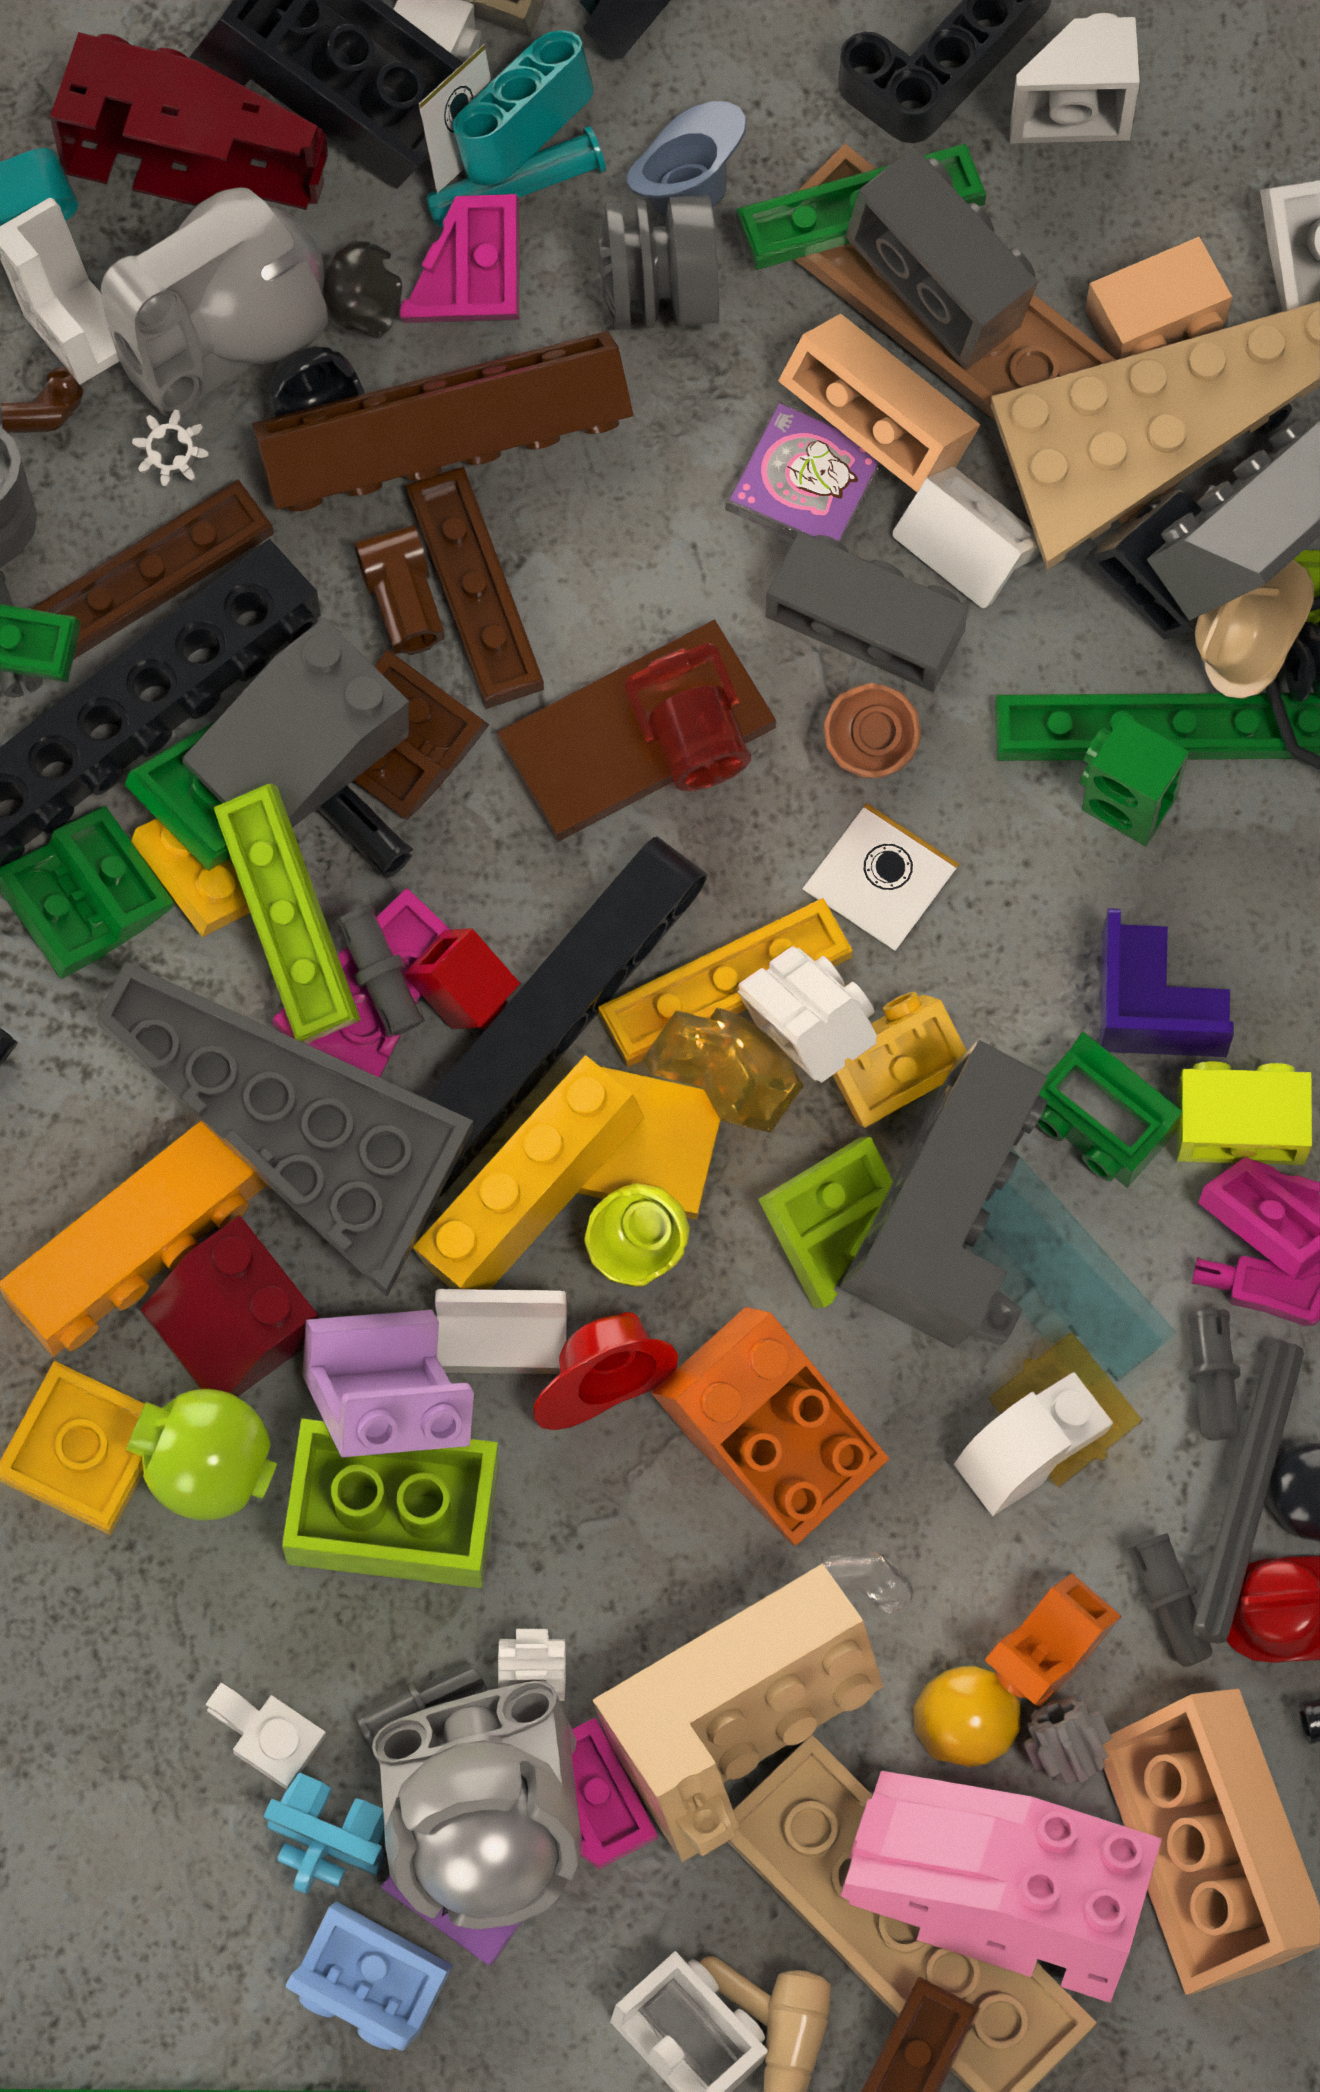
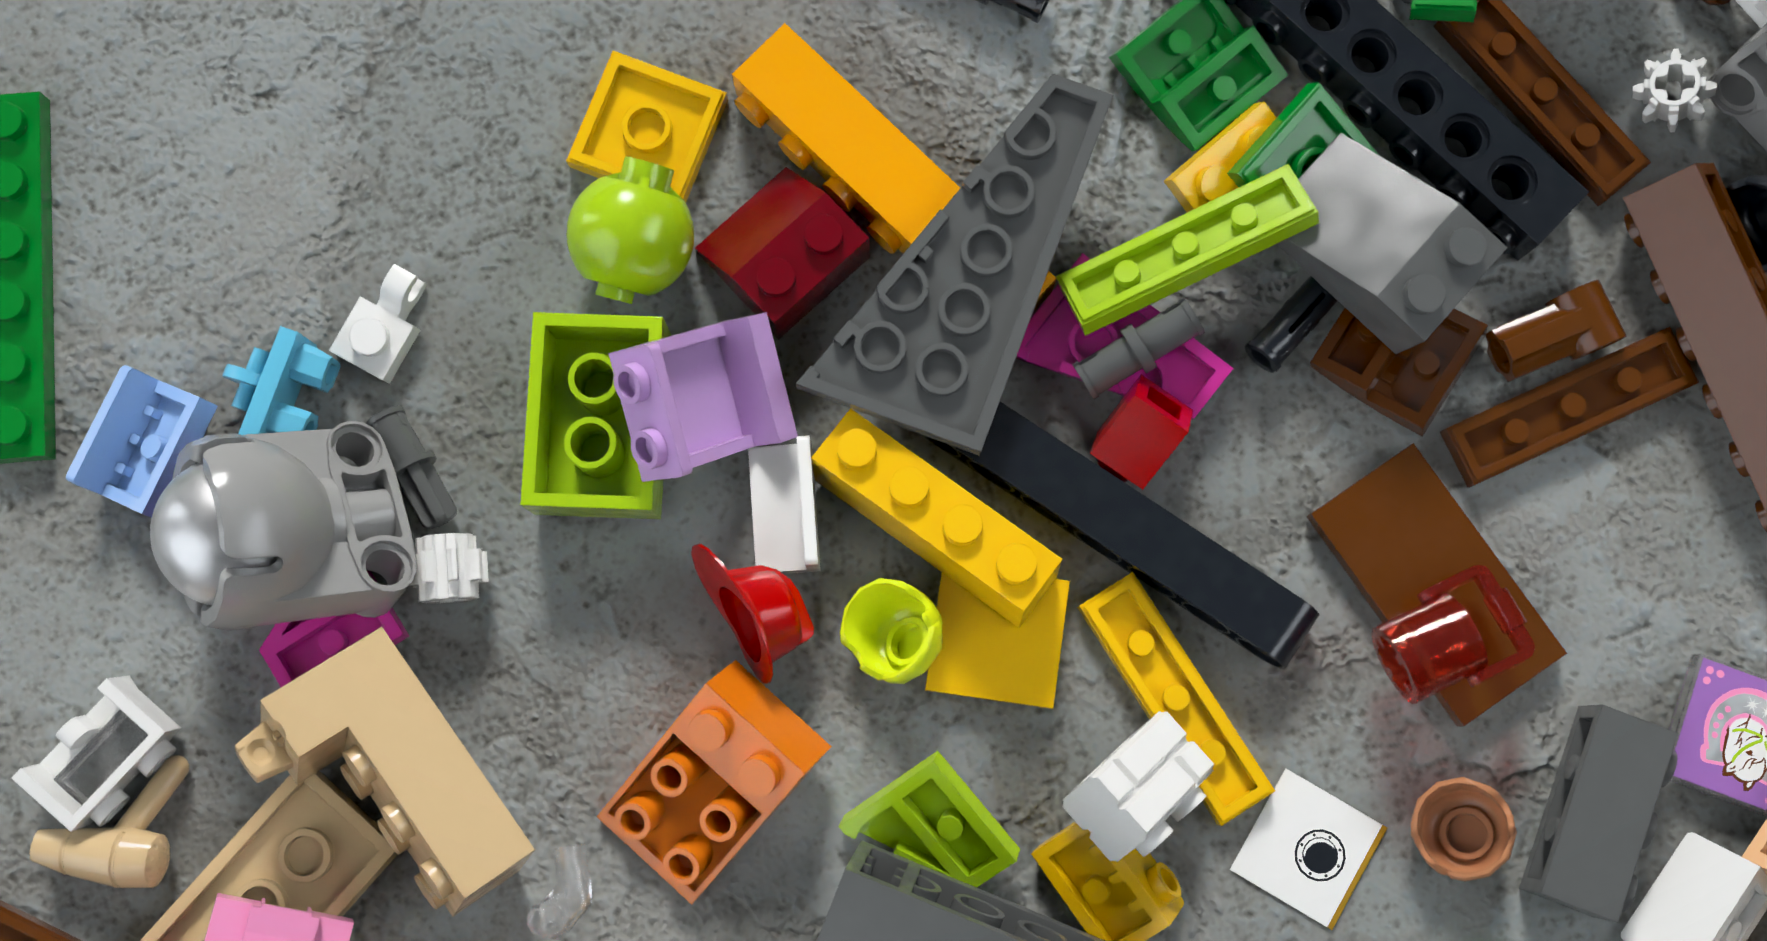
camera: 85 degrees right, 10 degrees up
(732, 1061) = (1081, 715): clear yellow brick -> none

